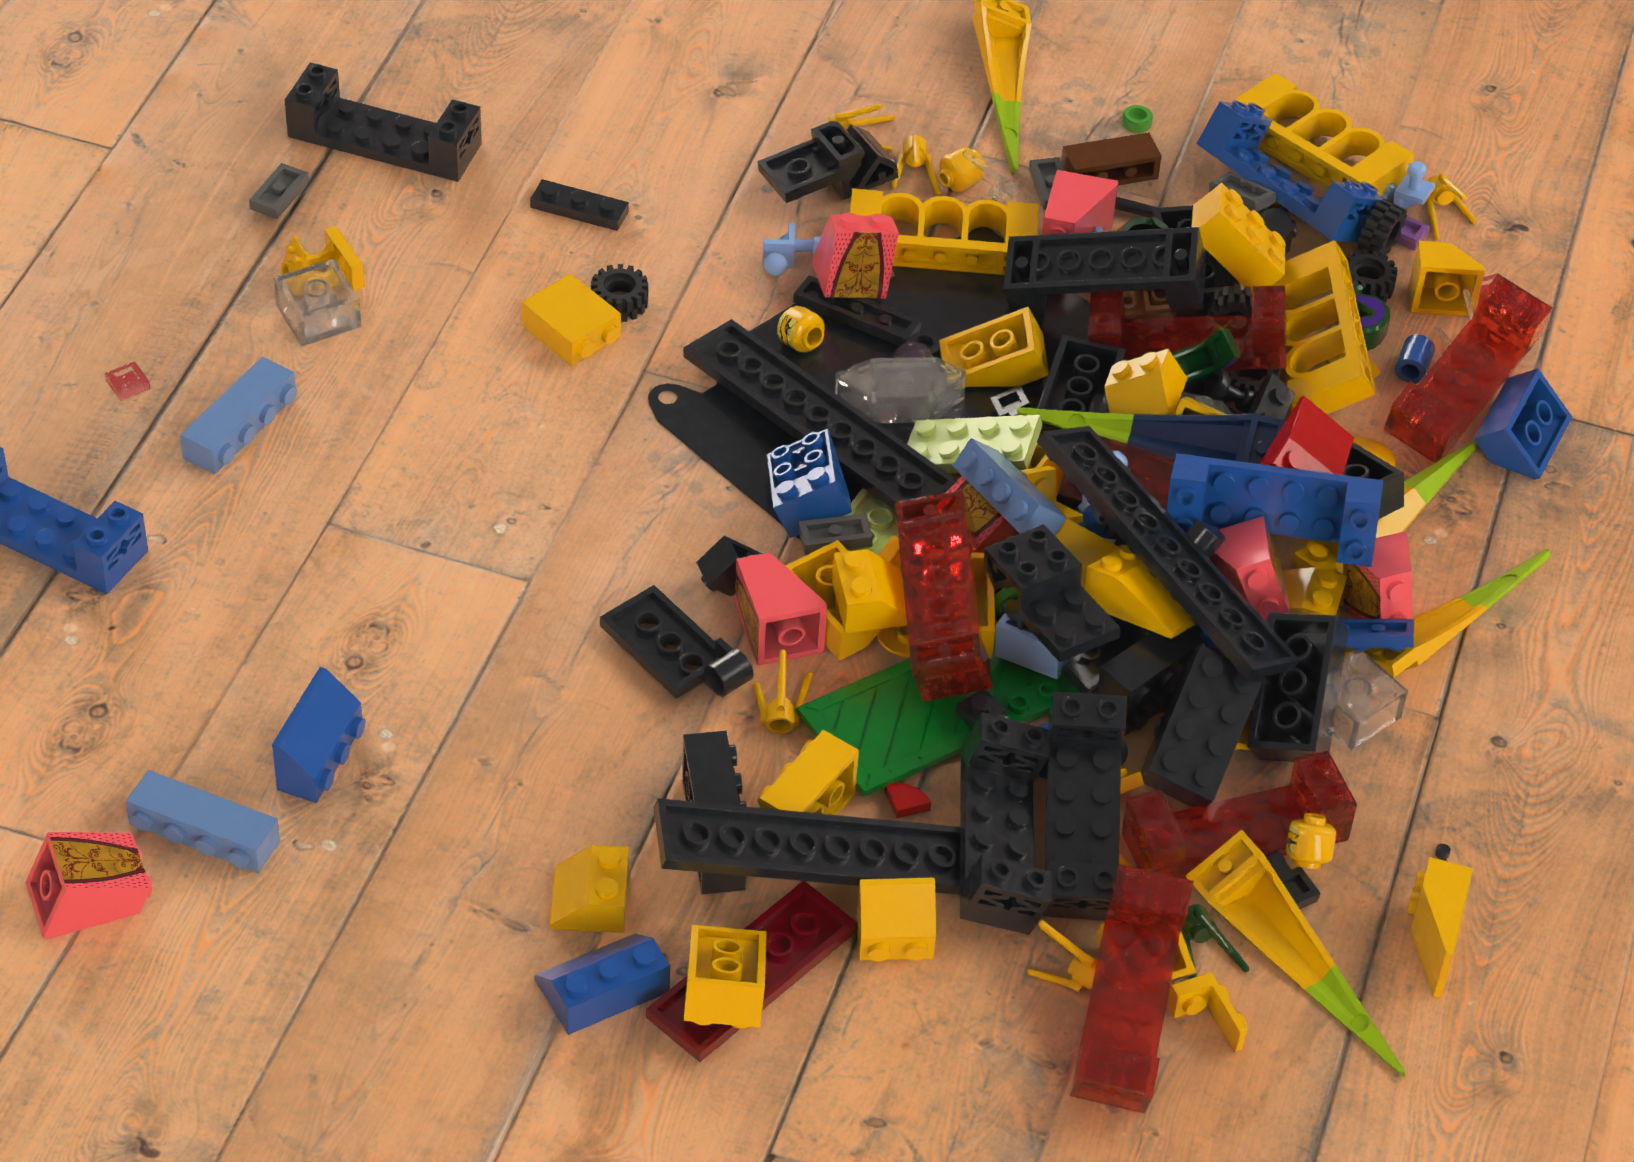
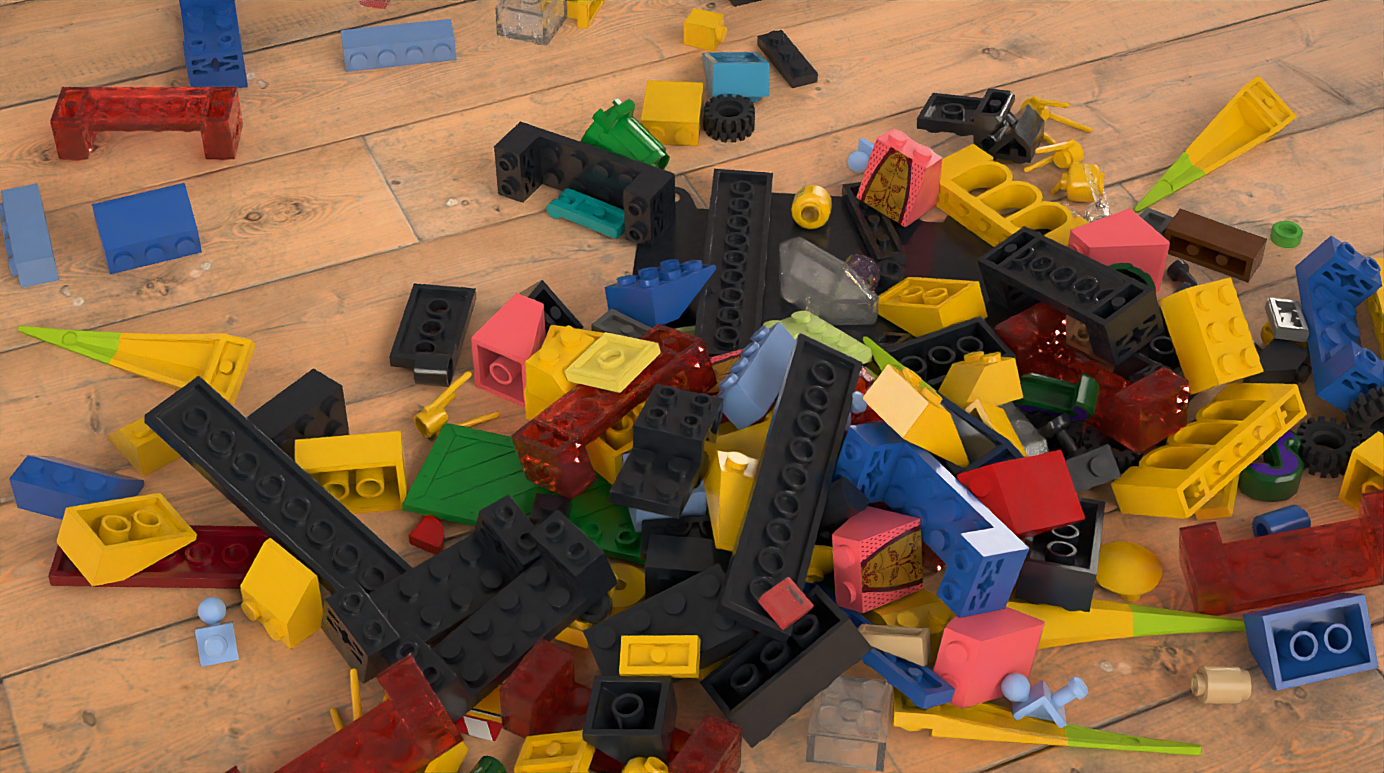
camera: 50 degrees right, 5 degrees down
(95, 669) = (90, 110): none -> clear red plate
(481, 221) = (704, 29): none -> yellow brick
(532, 815) = (162, 357): none -> yellow plate
(568, 245) = (737, 74): none -> dark azure slope
(606, 377) = (622, 134): none -> green container
(612, 418) = (538, 157): none -> black plate
(635, 456) = (588, 212): none -> teal plate
(883, 987) = (217, 640): none -> light blue piece
(913, 556) = (612, 362): none -> light yellow tile
(1195, 434) = (916, 413): none -> yellow slope
(1234, 742) = (660, 656): none -> yellow plate
(1258, 798) = (631, 717): none -> black slope
(1278, 638) = (785, 603): none -> clear tile
(1351, 610) = (904, 642): none -> tan piece
(1434, 595) = (1039, 699): none -> light blue piece
(1514, 498) = (1221, 684): none -> tan brick

